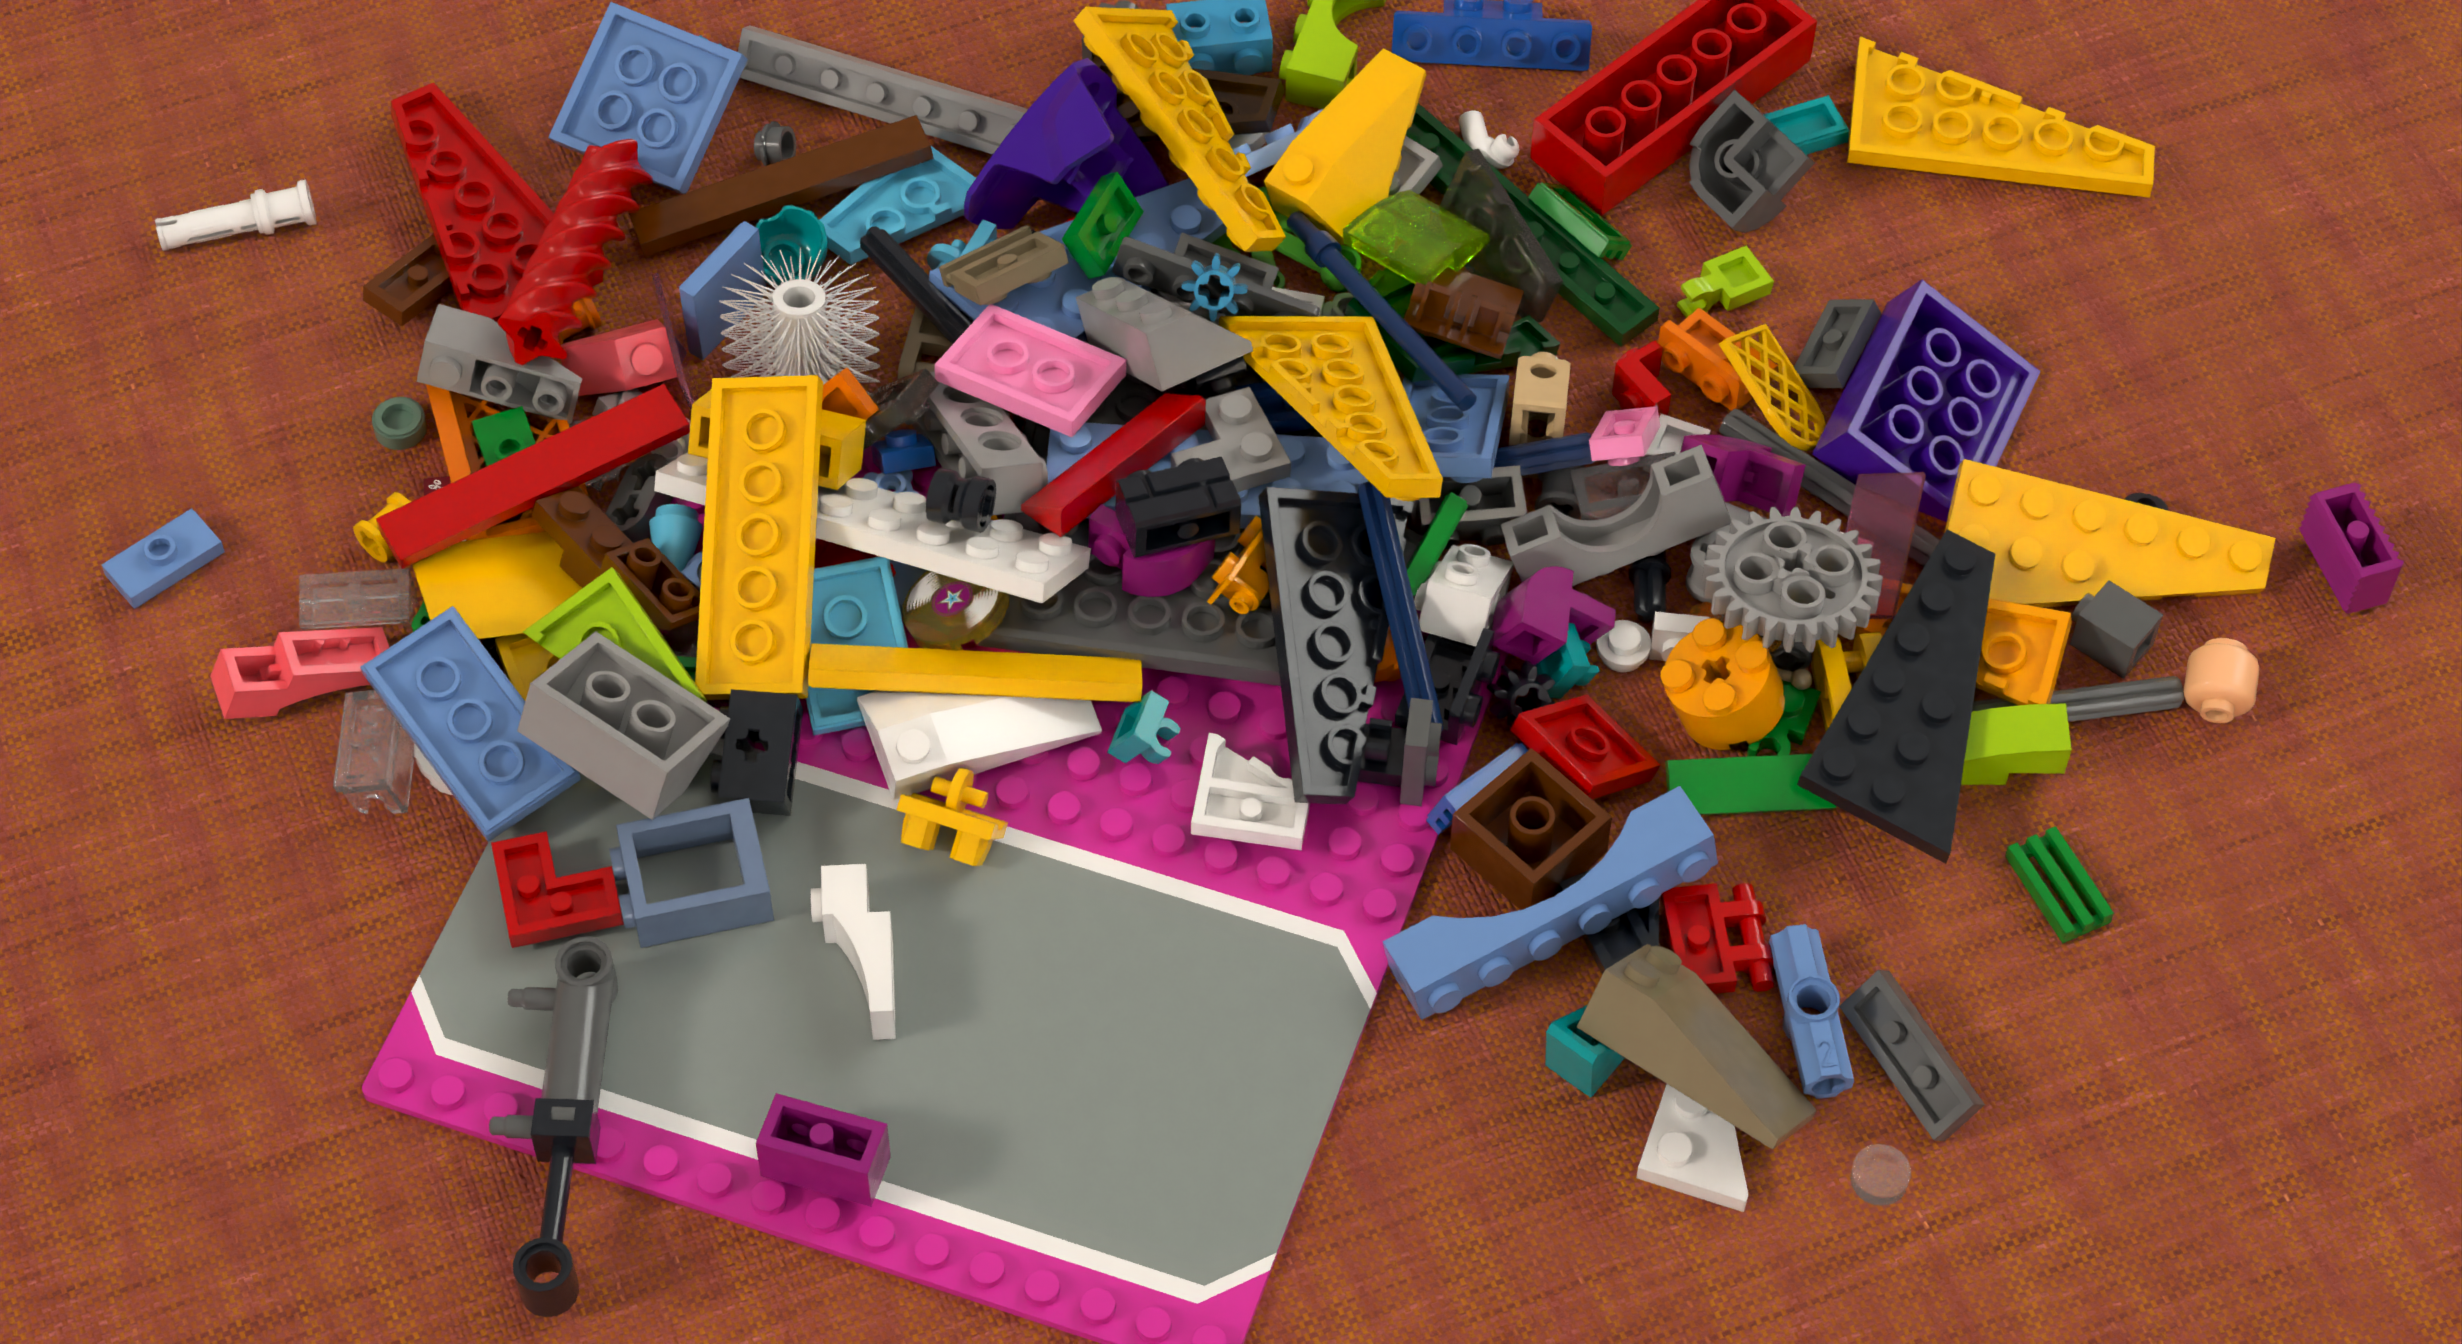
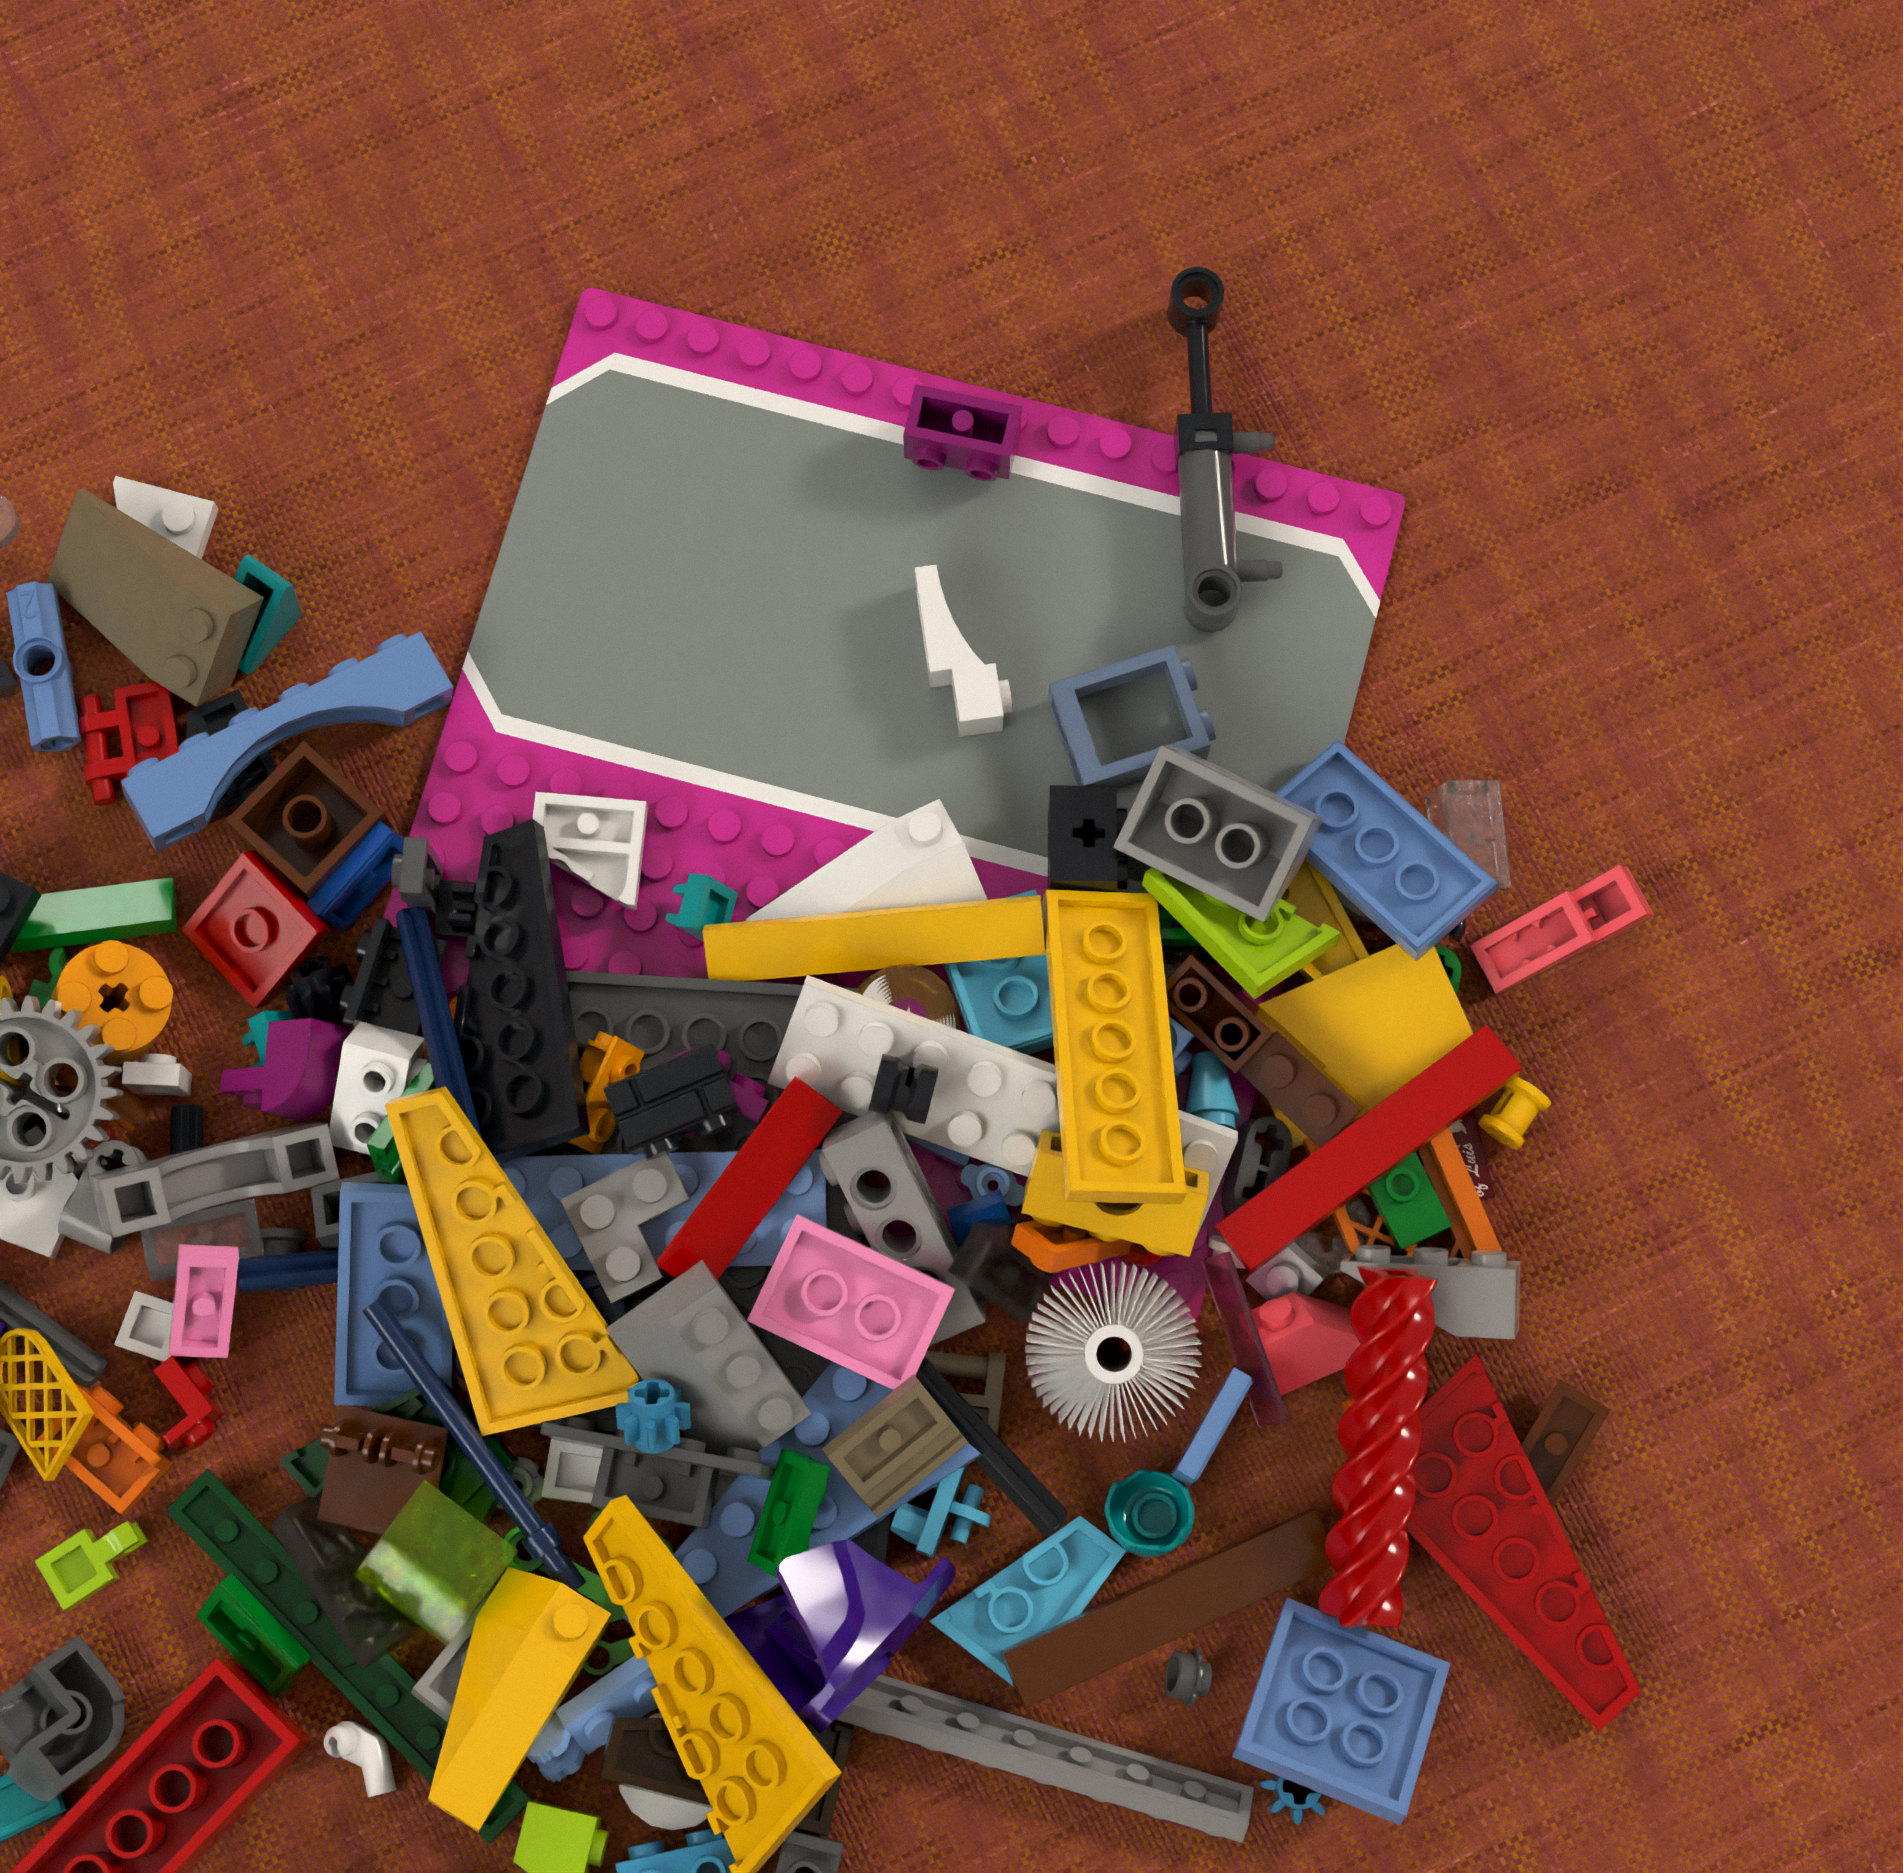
camera: 175 degrees right, 20 degrees up
(163, 558) = (1741, 1065): medium blue plate -> none
(260, 213) = (1753, 1526): white pin -> none
(356, 599) = (1529, 1005): clear hinge -> none
(399, 423) = (1540, 1258): sand green tile -> none
(549, 907) = (1267, 679): red plate -> none
(926, 815) = (879, 797): yellow hips -> none
(1539, 395) = (301, 1325): tan torso -> none
(1624, 646) = (206, 1073): white plate -> none
(1750, 472) = (86, 1287): magenta brick -> none

